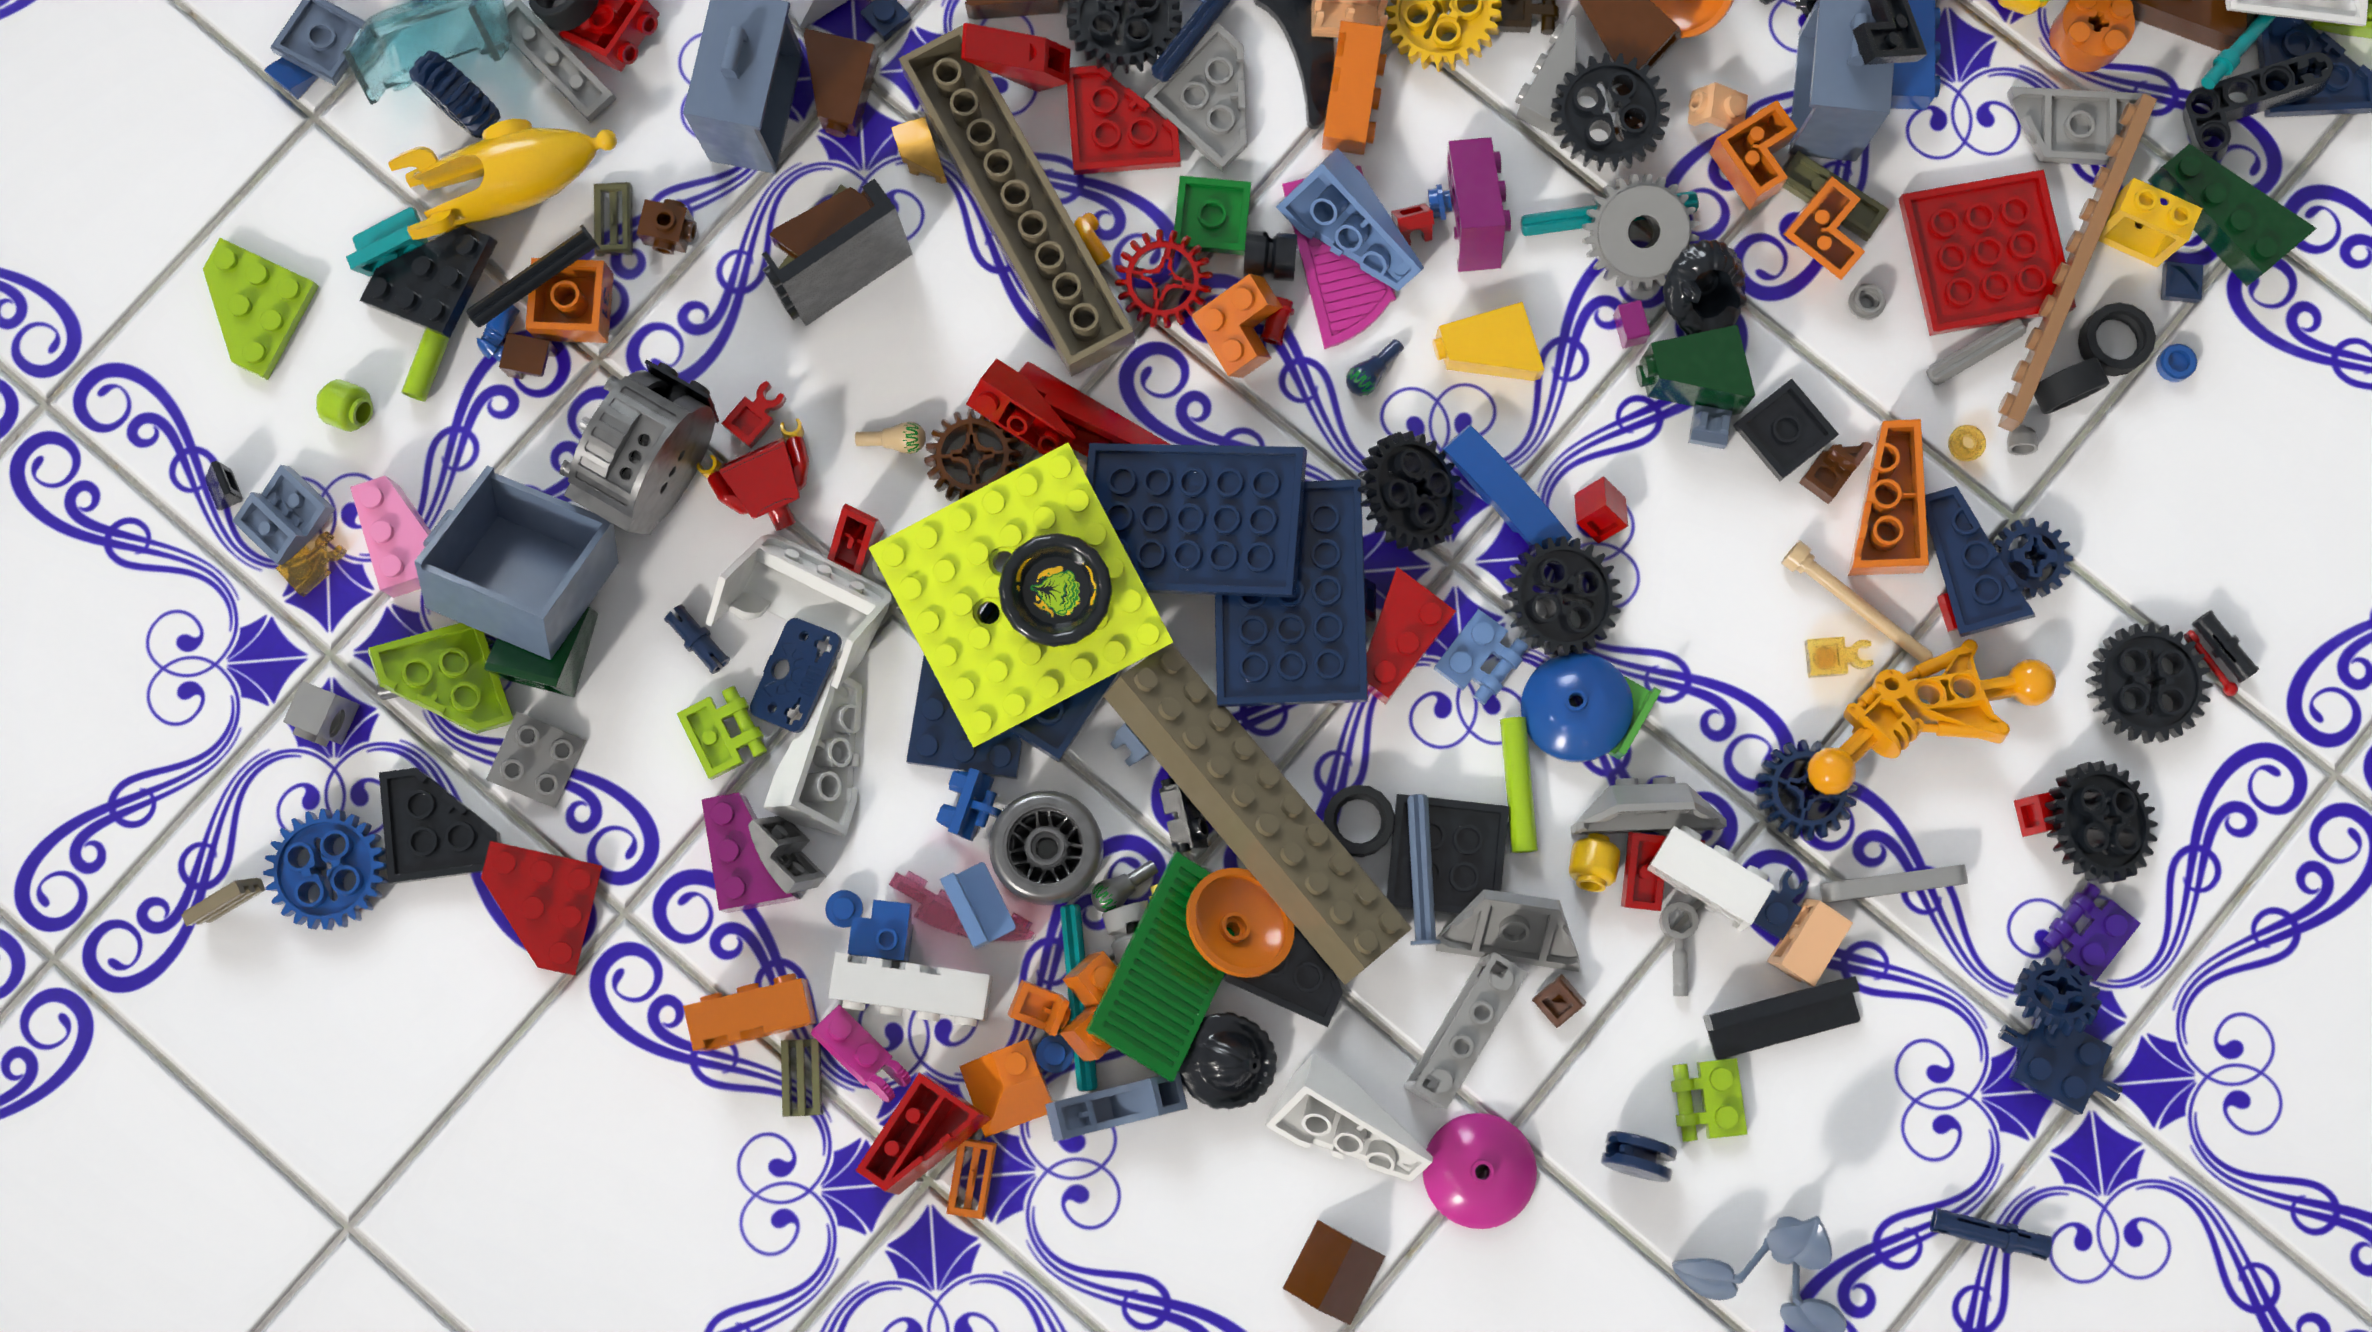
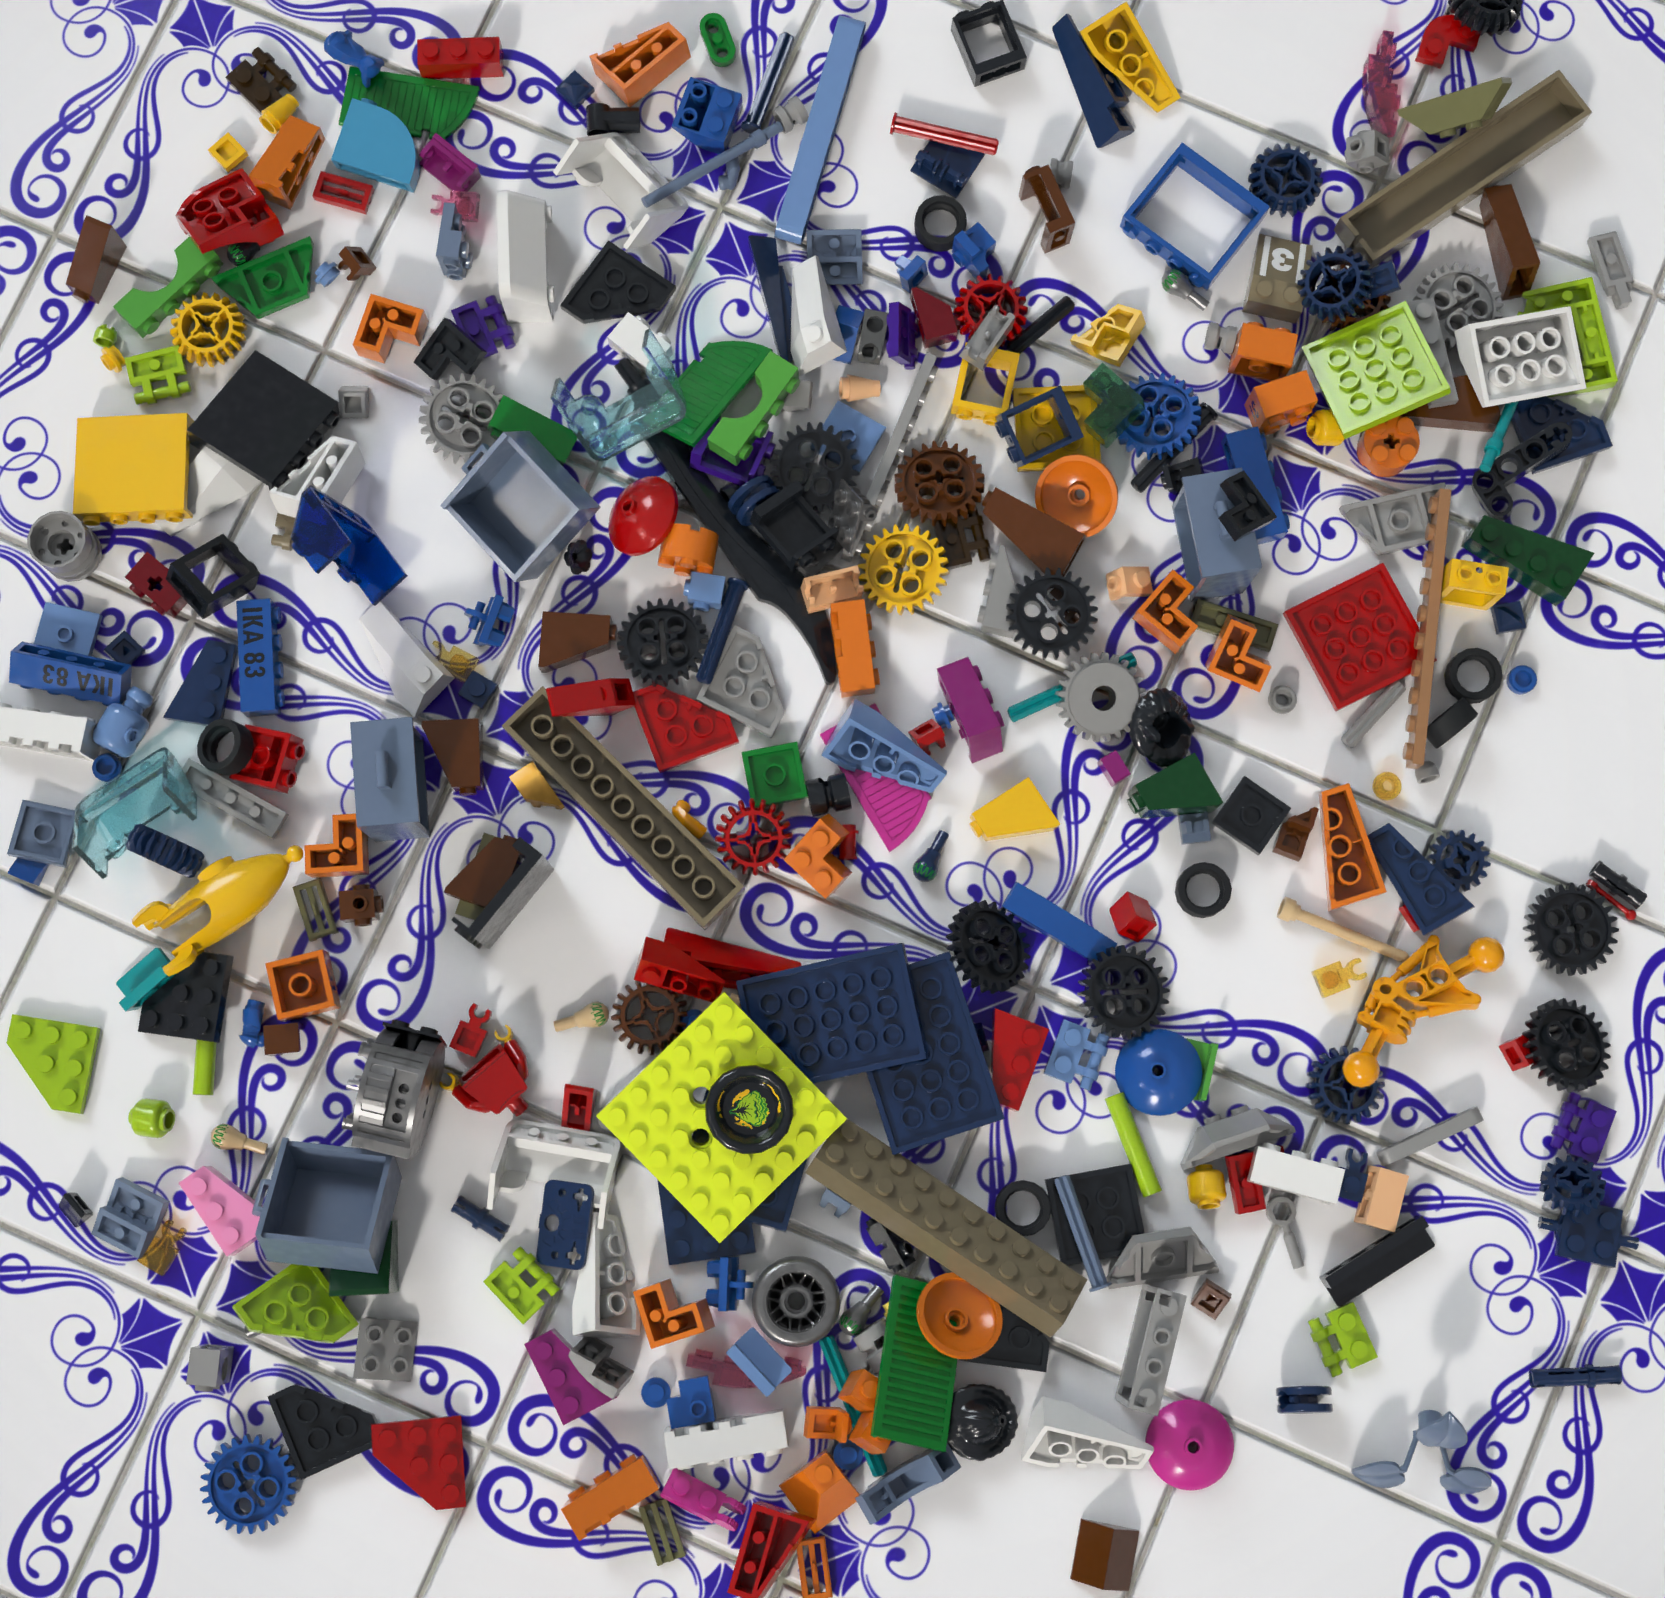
camera: 25 degrees left, 0 degrees up
(223, 901) = (178, 1534): dark tan tile -> none
(428, 456) = (229, 1138): none -> tan piece
(532, 277) = (271, 979): black axle -> none
(660, 163) = (345, 856): none -> orange brick
(882, 822) = (664, 1318): none -> orange brick
(1718, 483) = (1212, 870): none -> black tyre

